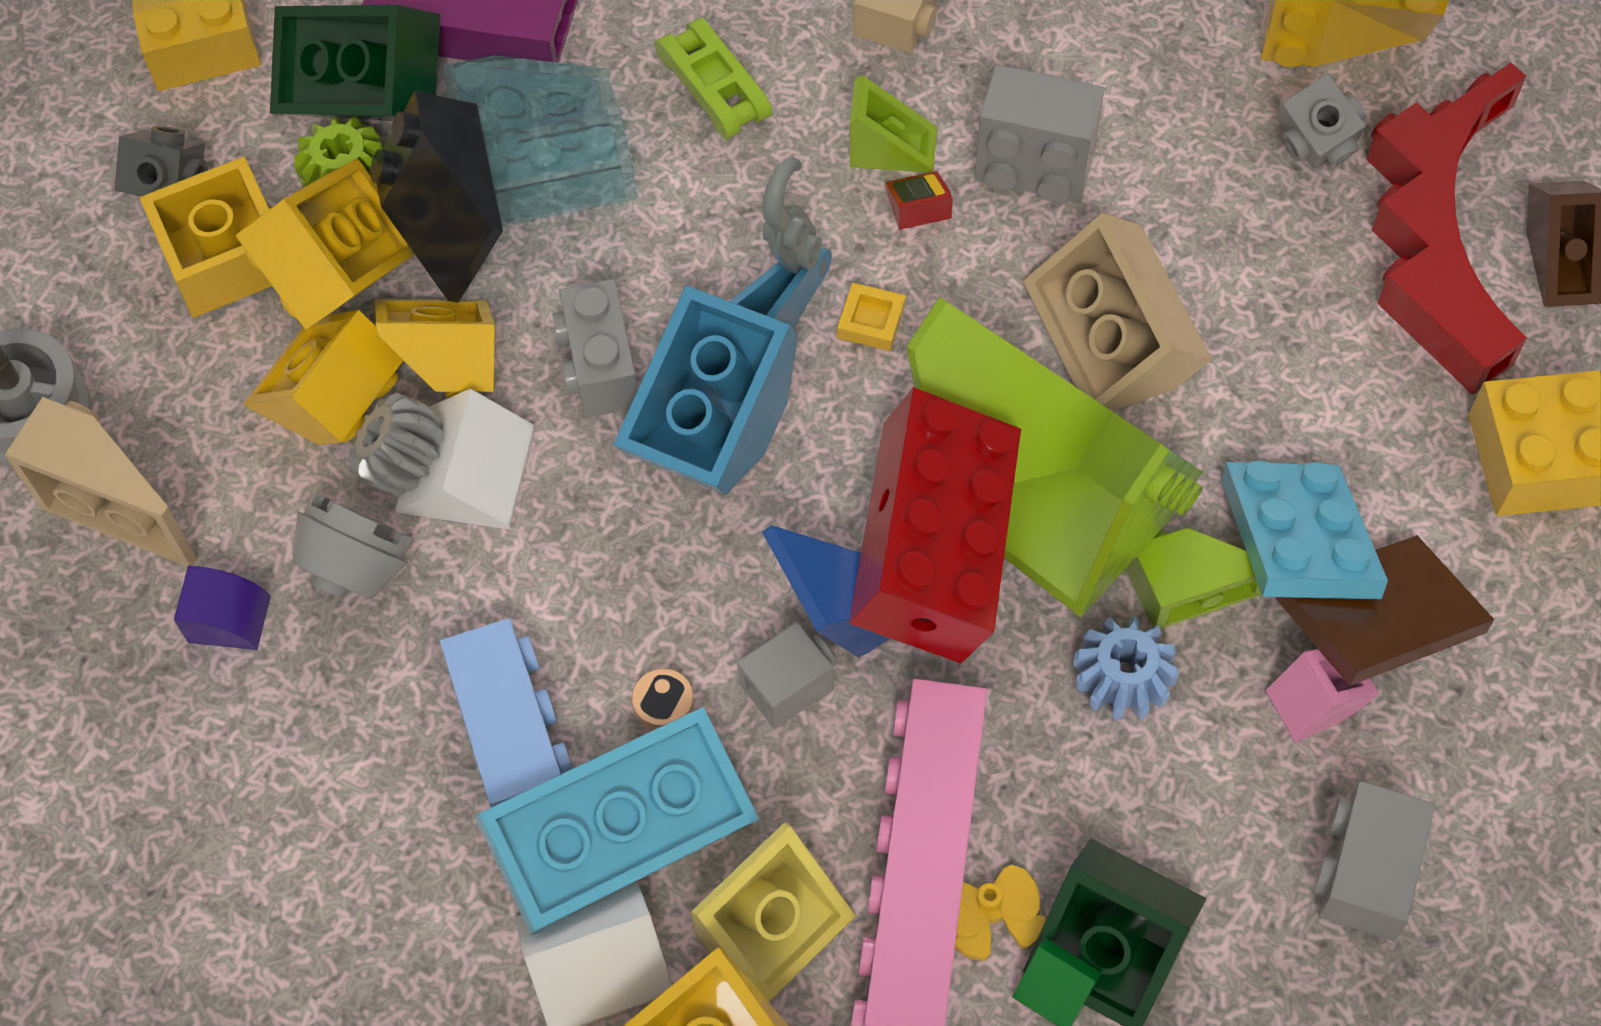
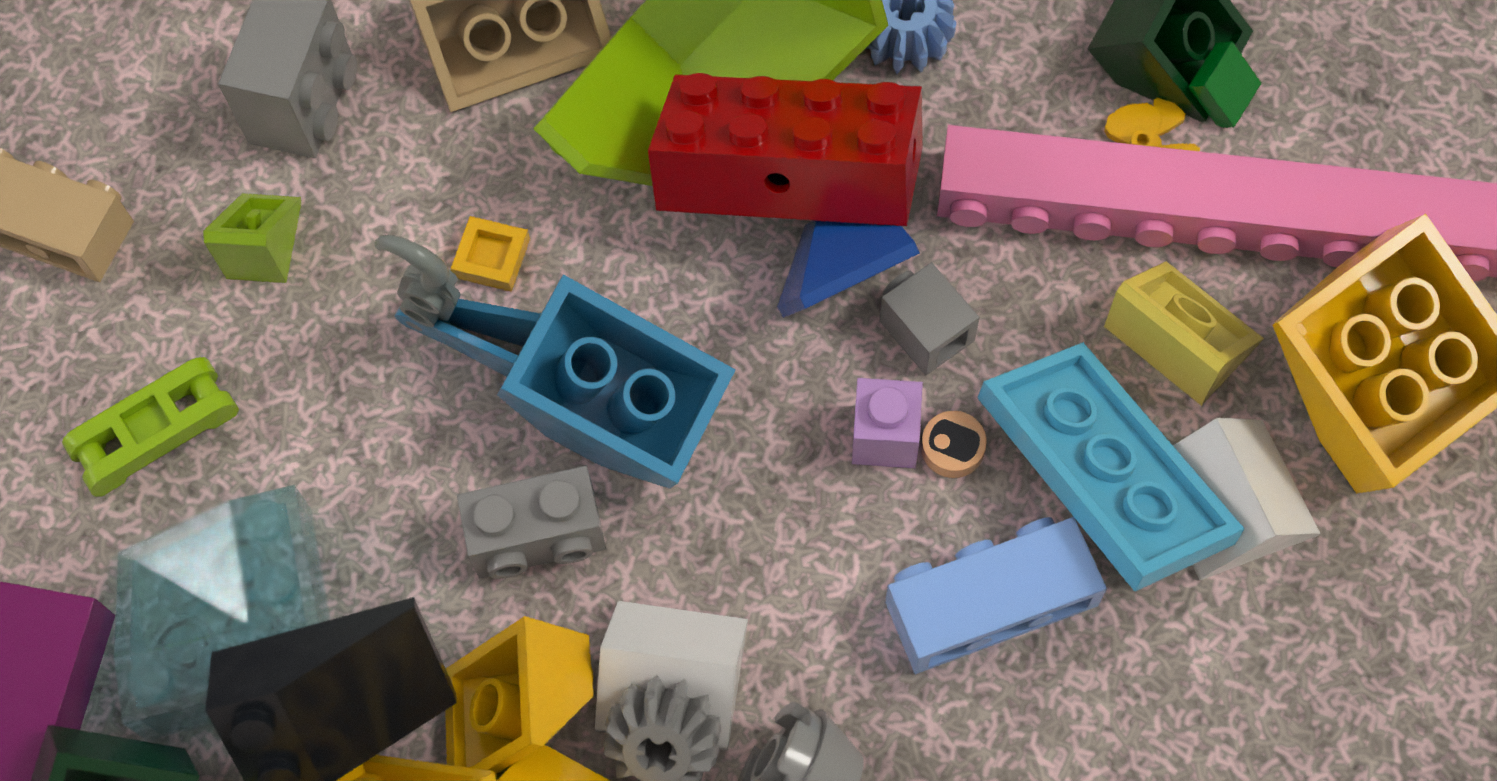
camera: 90 degrees left, 5 degrees up
(676, 631) = (887, 423): none -> lavender brick
(919, 200) = (339, 207): red slope -> none

